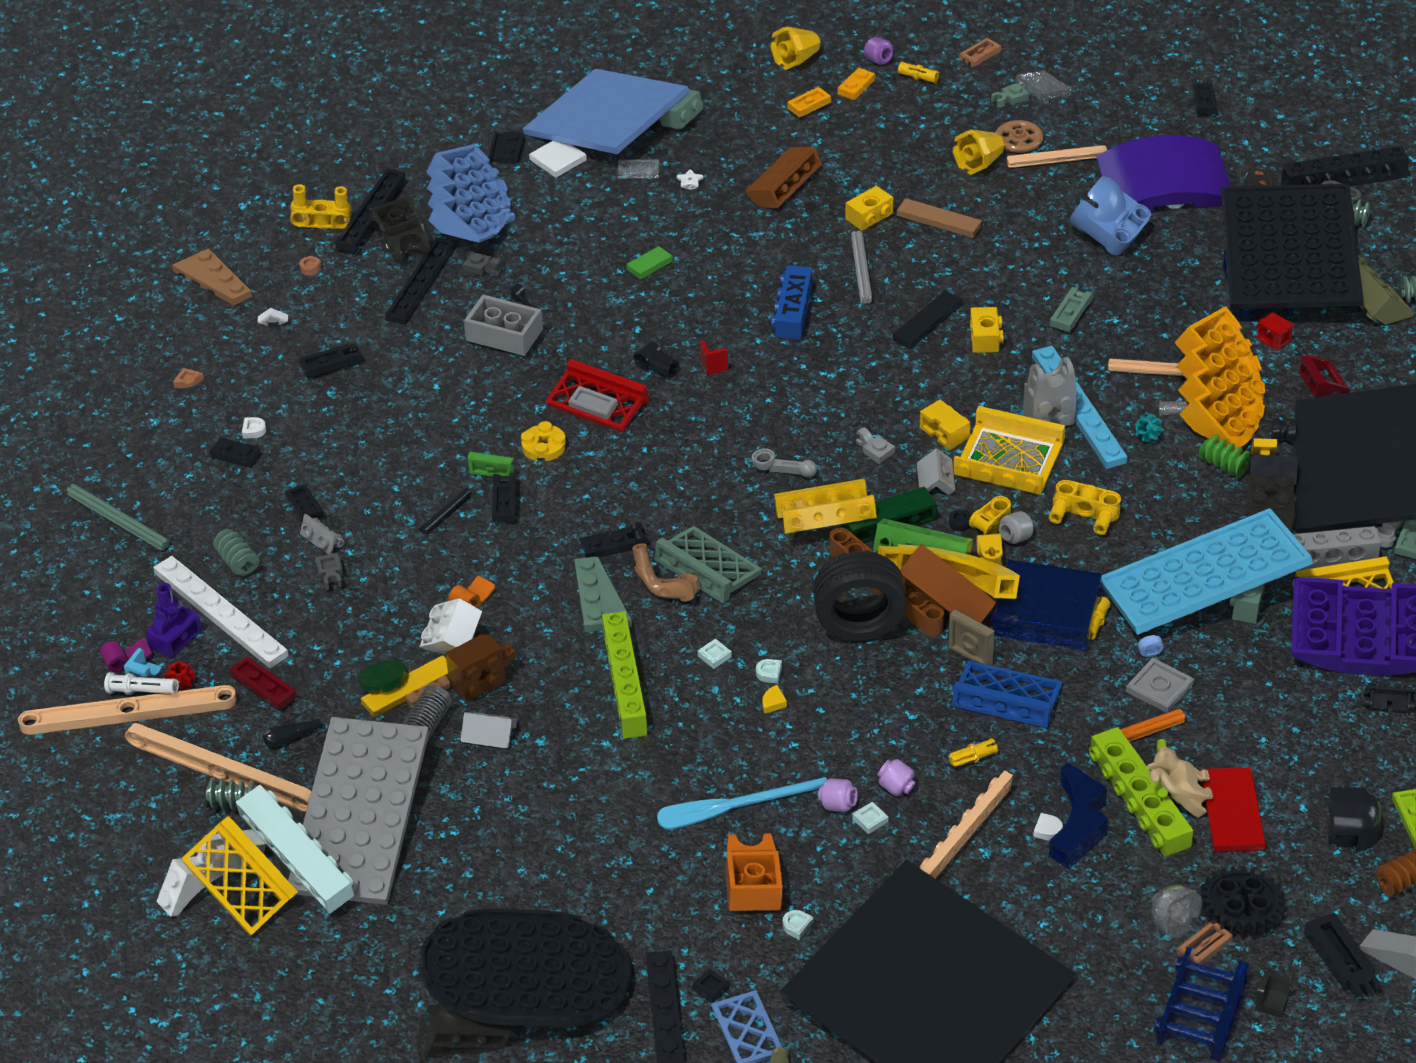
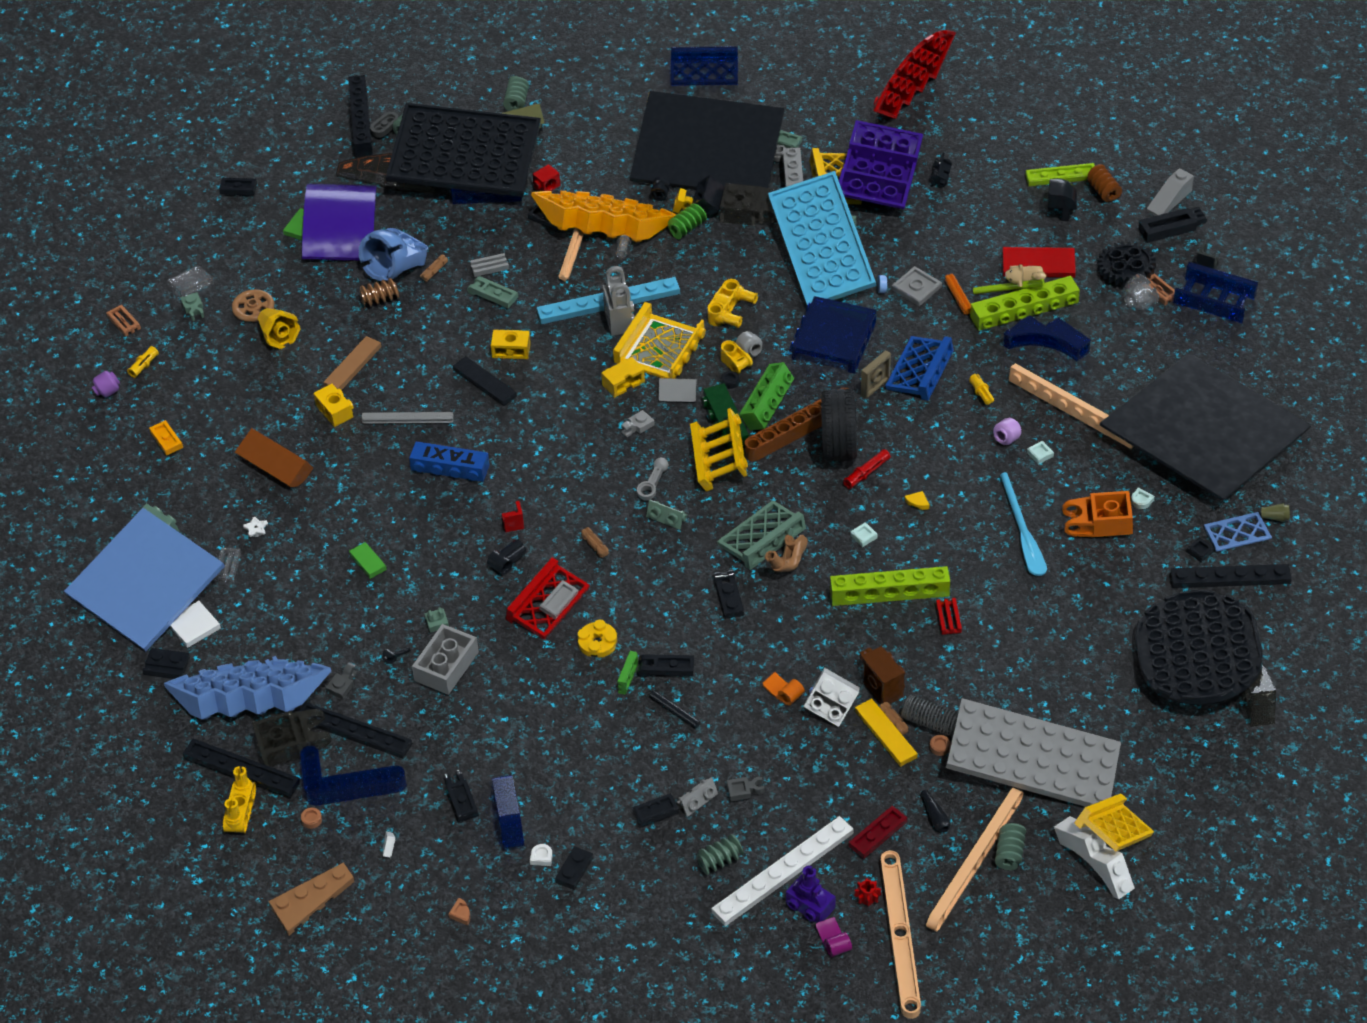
camera: 85 degrees left, 5 degrees up
(118, 517) = (650, 957): sand green axle -> none
(130, 684) = (876, 927): white pin -> none
(139, 667) = (856, 924): medium azure panel -> none
(295, 848) = (1083, 790): light aqua brick -> none
(302, 386) = (508, 811): none -> clear blue beam
(349, 258) = (347, 786): none -> clear blue beam
(382, 675) = (879, 745): dark green tile -> none
(487, 729) = (939, 676): light grey panel -> none
(567, 320) = (436, 619): none -> sand green tile
(586, 735) = (946, 604): none -> red tile
(596, 593) = (794, 605): sand green wing -> none
(685, 427) = (595, 542): none -> medium nougat axle
(727, 485) = (665, 514): none -> sand green hinge
(769, 670) = (885, 502): light aqua tile -> none
(793, 46) = (87, 440): yellow cone -> none
(811, 643) = (862, 472): none -> red pin
(838, 795) = (1023, 465): lavender head -> none
(856, 83) = (144, 406): light orange plate -> none
(946, 585) = (830, 376): dark orange brick -> none
(986, 575) = (805, 368): yellow arch -> none
(990, 547) = (768, 357): yellow piece -> none
(1047, 827) = (1053, 357): white tile -> none
(1049, 219) = (379, 292): none -> medium nougat piece
(1055, 156) = (289, 273): light nougat axle -> none
(1104, 260) = (434, 267): none -> medium nougat axle
(1123, 302) = (489, 265): none -> light grey tile
(1148, 427) = (647, 254): teal gear -> none
(1319, 387) = (603, 163): dark red tile -> none

